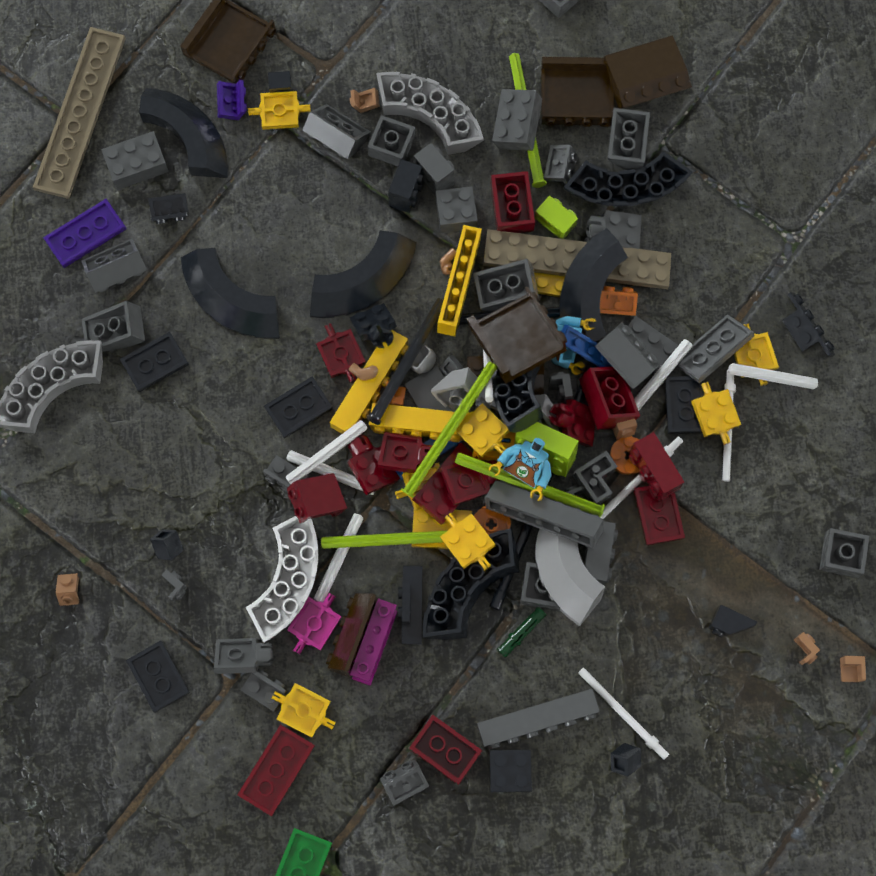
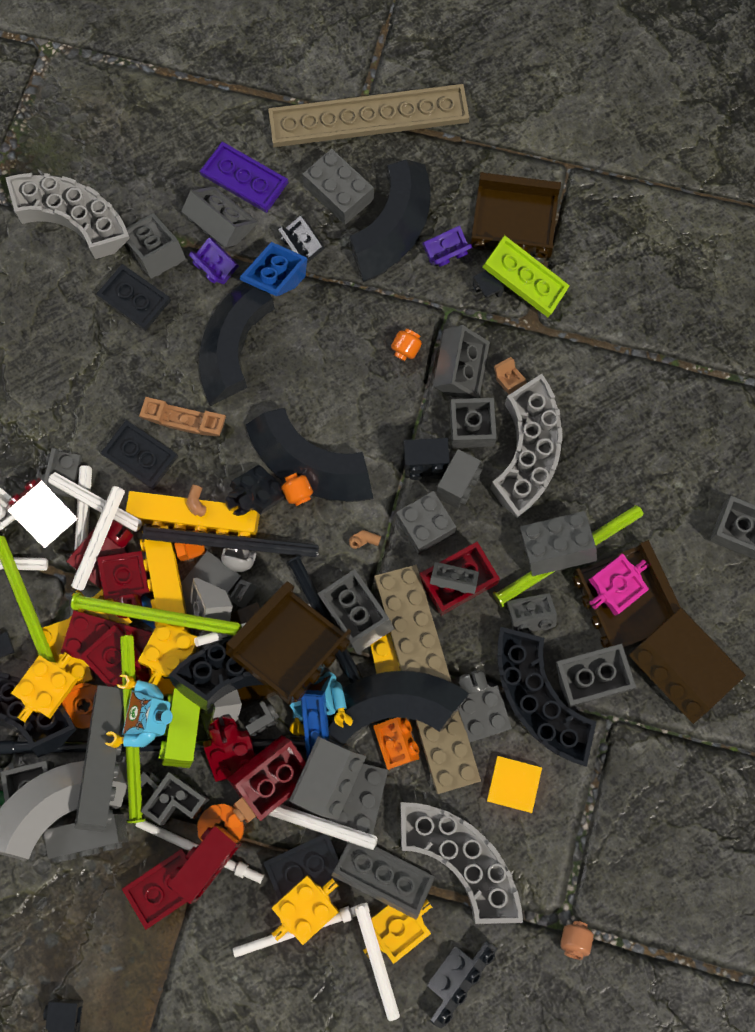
camera: 70 degrees right, 0 degrees up
(153, 284) = (214, 262): none -> dark purple bracket
(191, 234) = (276, 270): none -> blue slope
(279, 110) = (458, 298): yellow plate -> none
(283, 361) = (181, 418): none -> medium nougat slope
(287, 50) = (526, 276): none -> lime plate
(301, 164) = (406, 344): none -> orange head
(340, 352) = (215, 470): dark red plate -> none
(361, 457) = (98, 537): none -> white axle
(386, 294) = (297, 489): none -> orange head
(459, 281) = (340, 558): yellow brick -> none
(516, 198) = (454, 578): none -> dark grey bracket
(556, 217) = (465, 634): lime brick -> none
(566, 92) = (619, 584): none -> dark pink plate
(682, 231) = (514, 784): none -> yellow tile
(724, 283) = (467, 856): none -> light grey brick
(810, 234) = (576, 940): none -> nougat head

